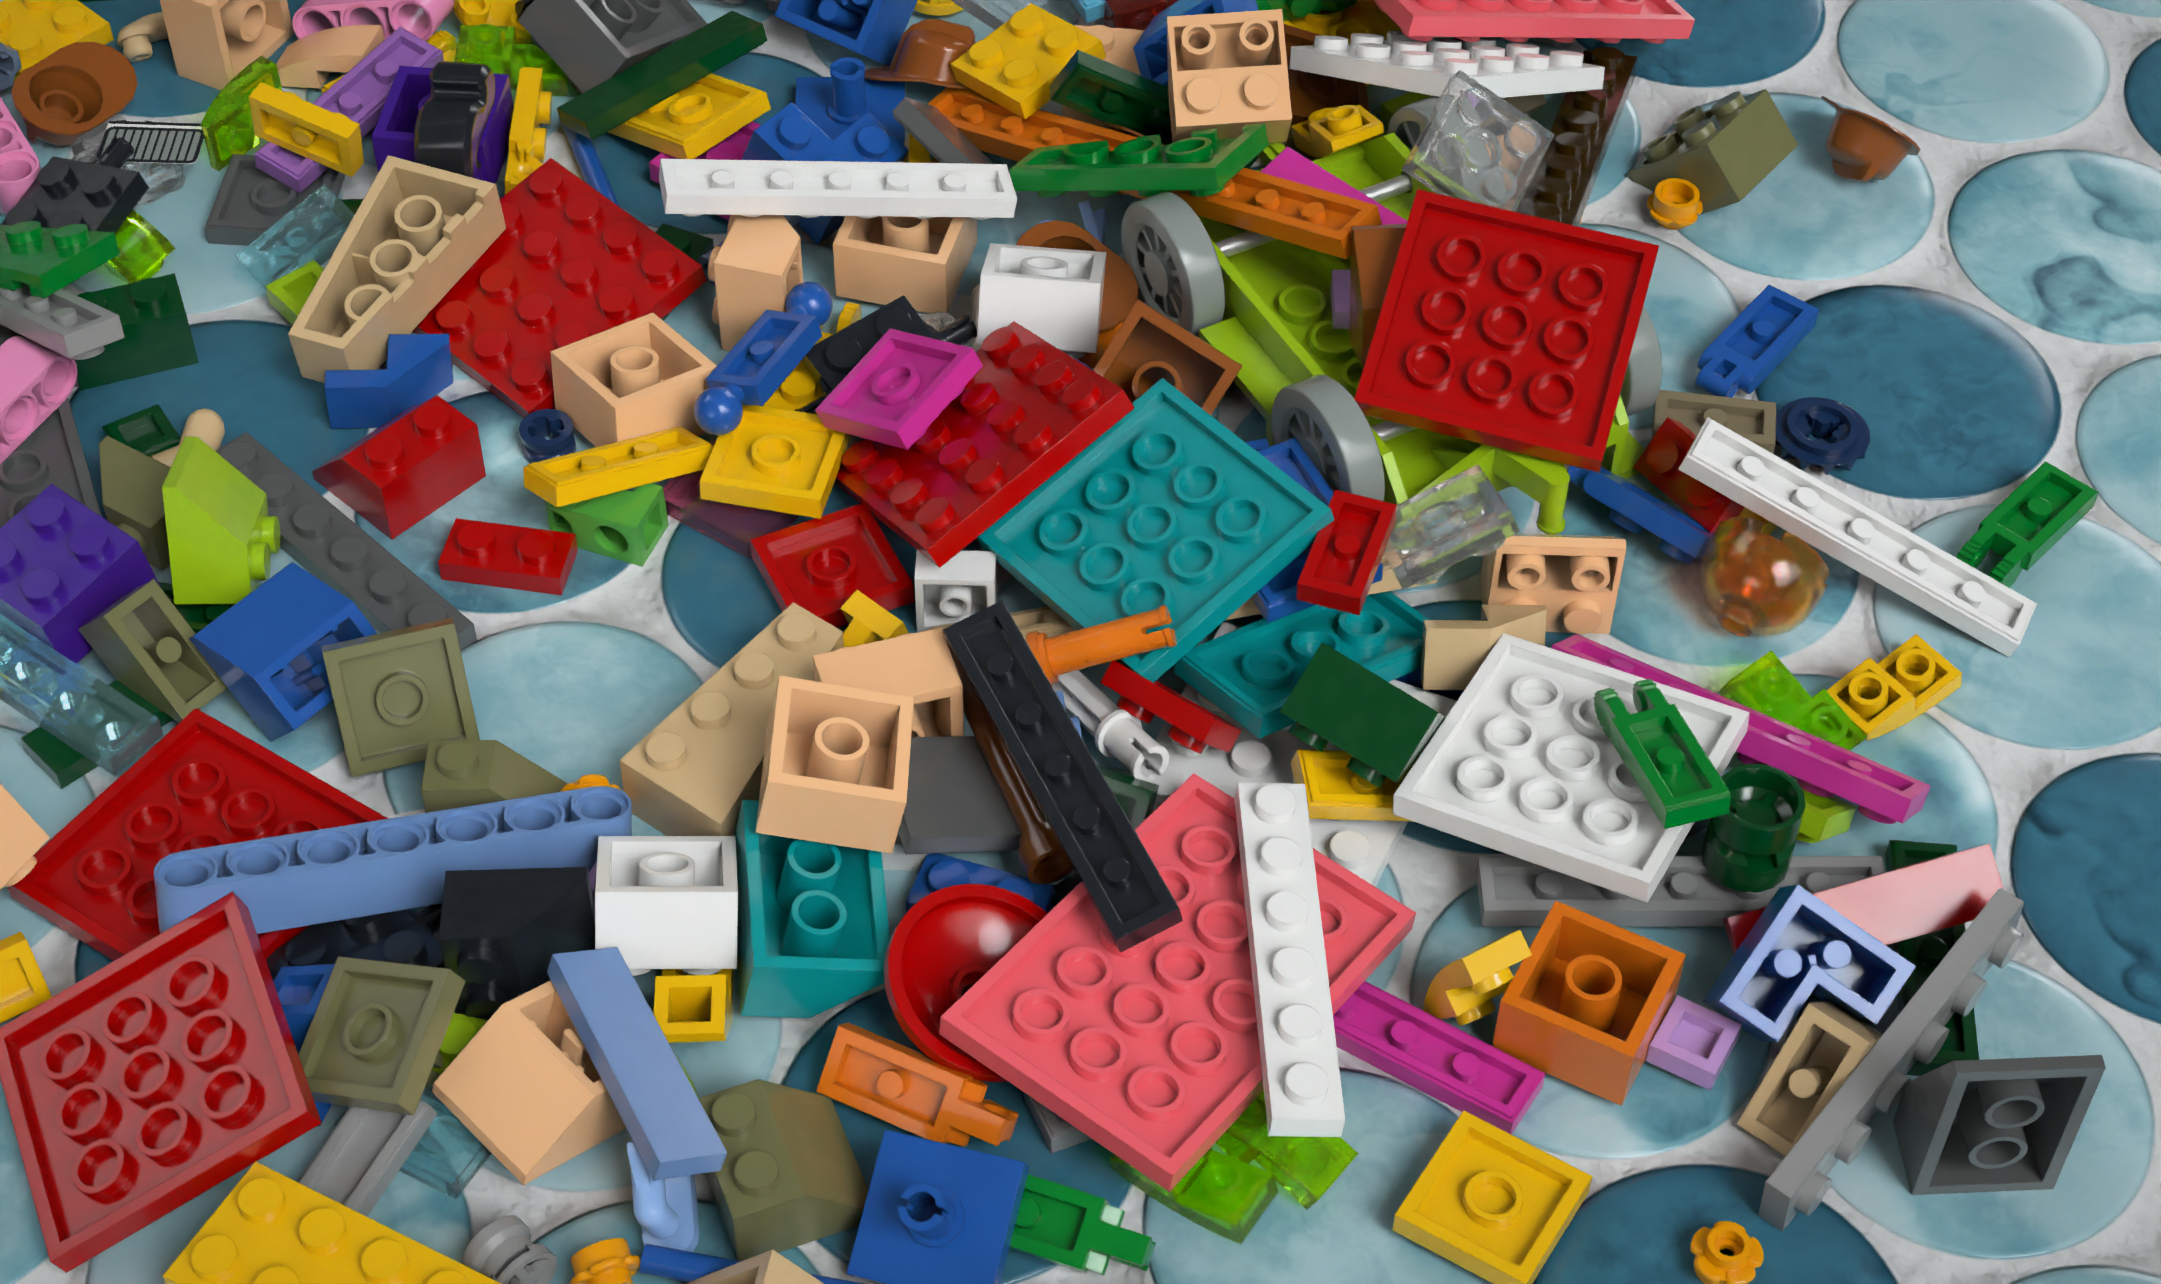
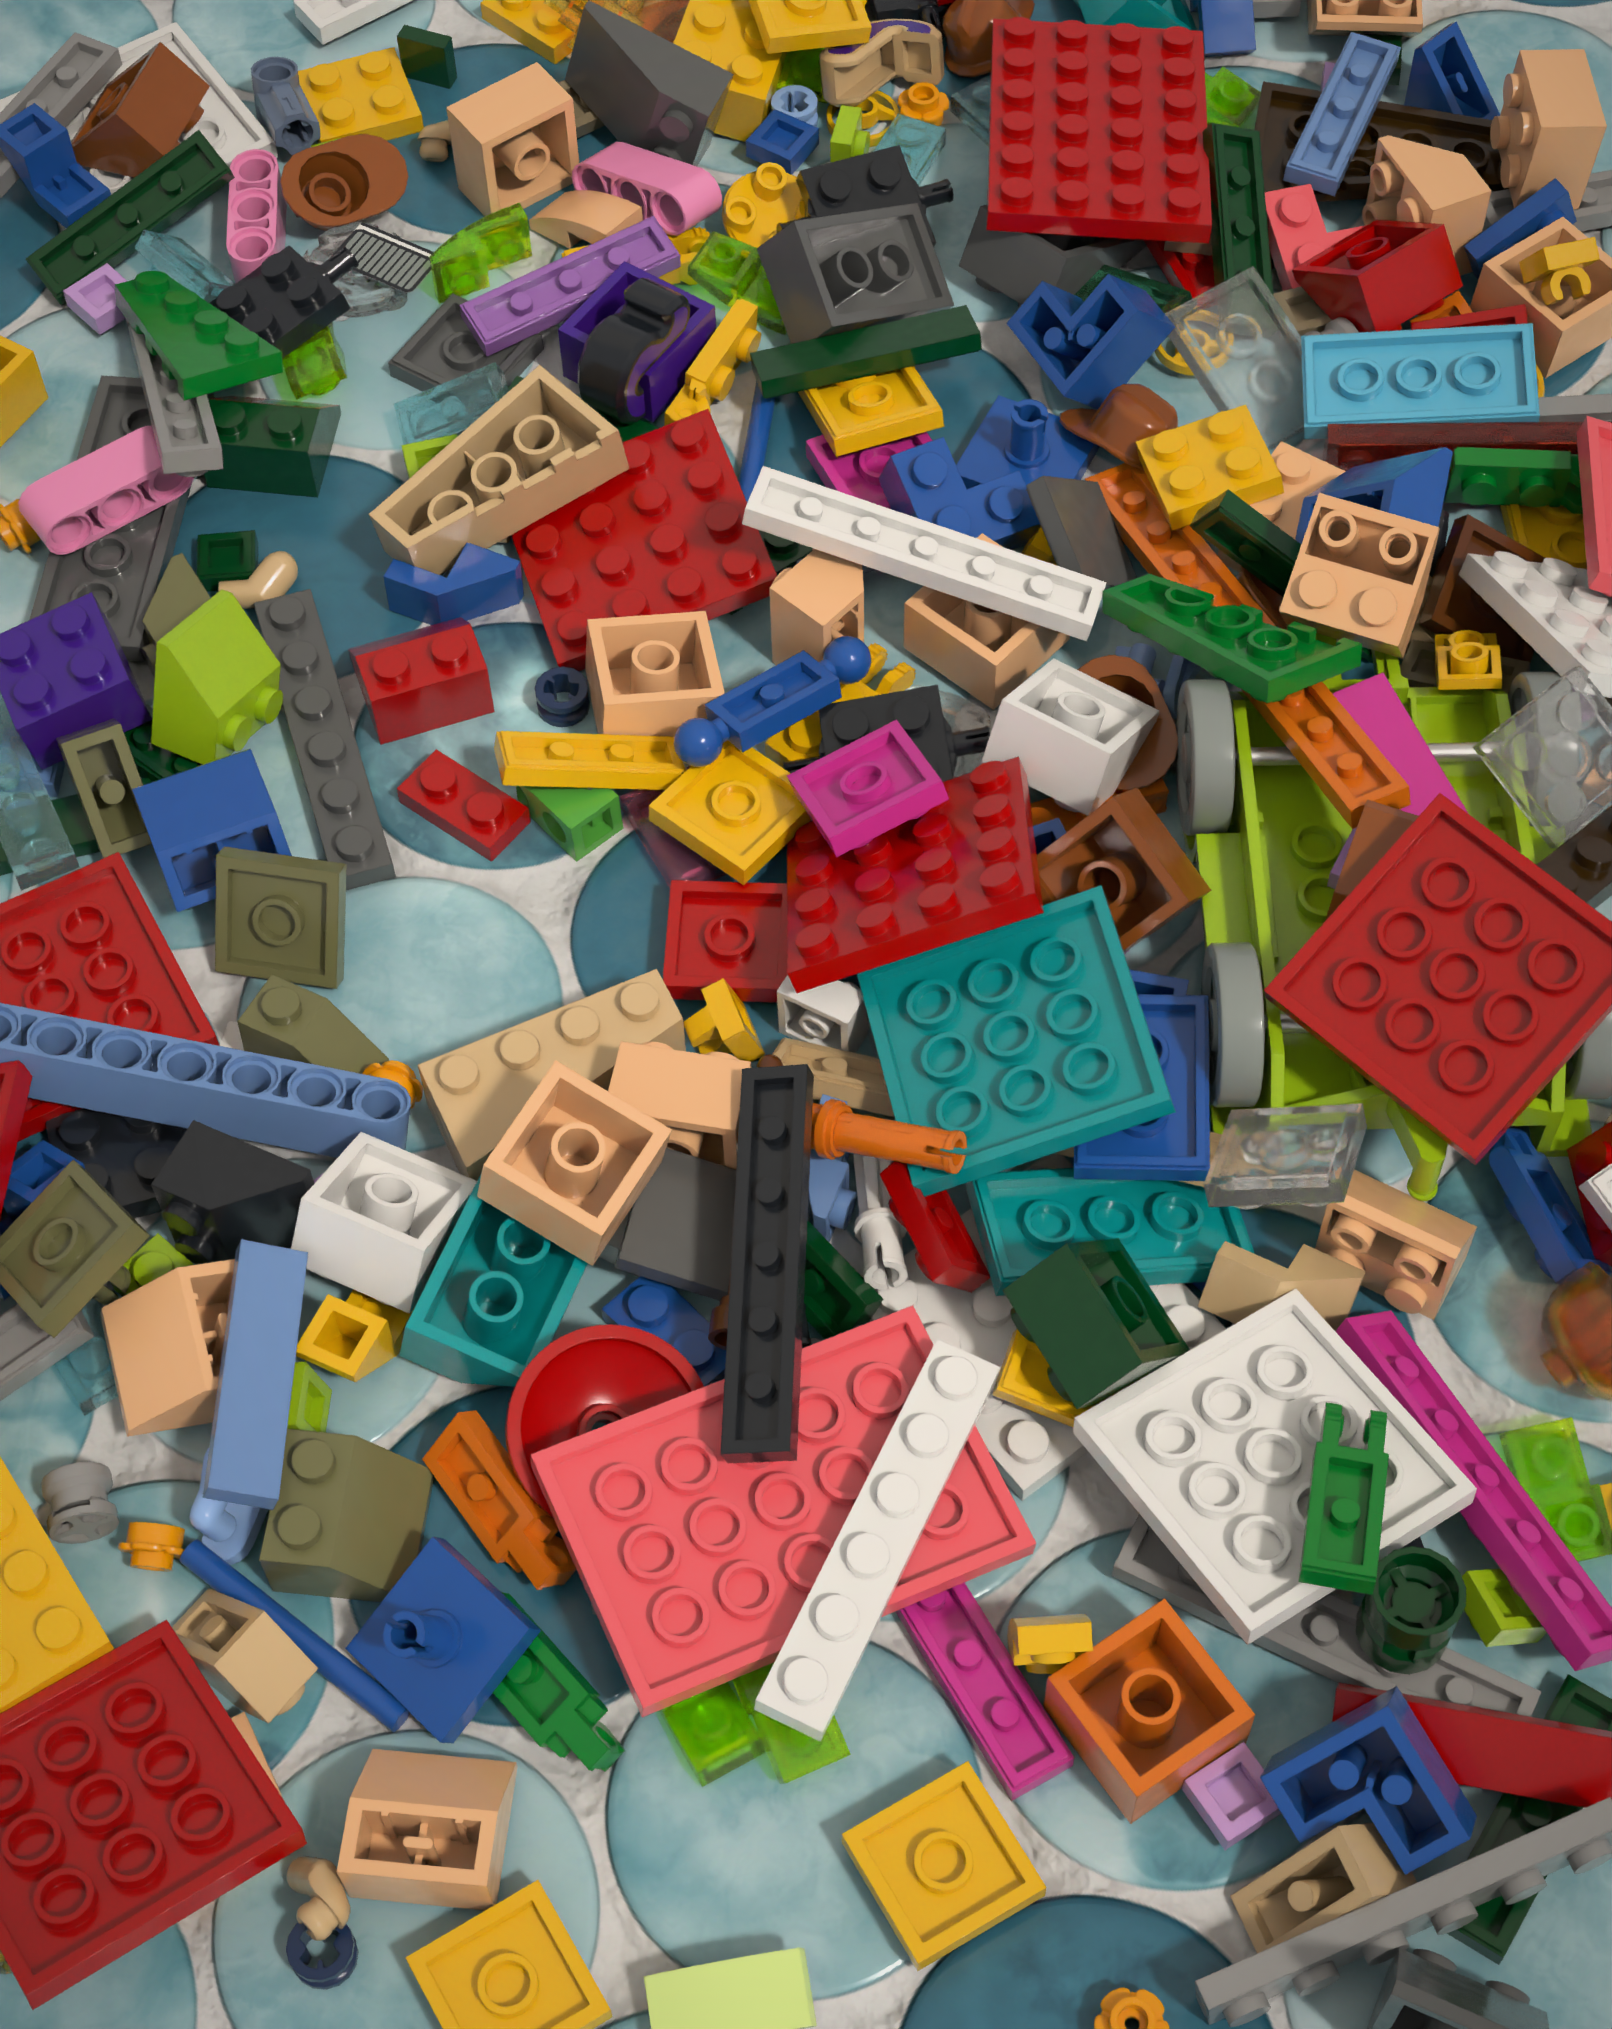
camera: 30 degrees right, 10 degrees up
(306, 129) = (499, 290): yellow plate -> none
(1347, 553) = (1172, 1146): red plate -> none

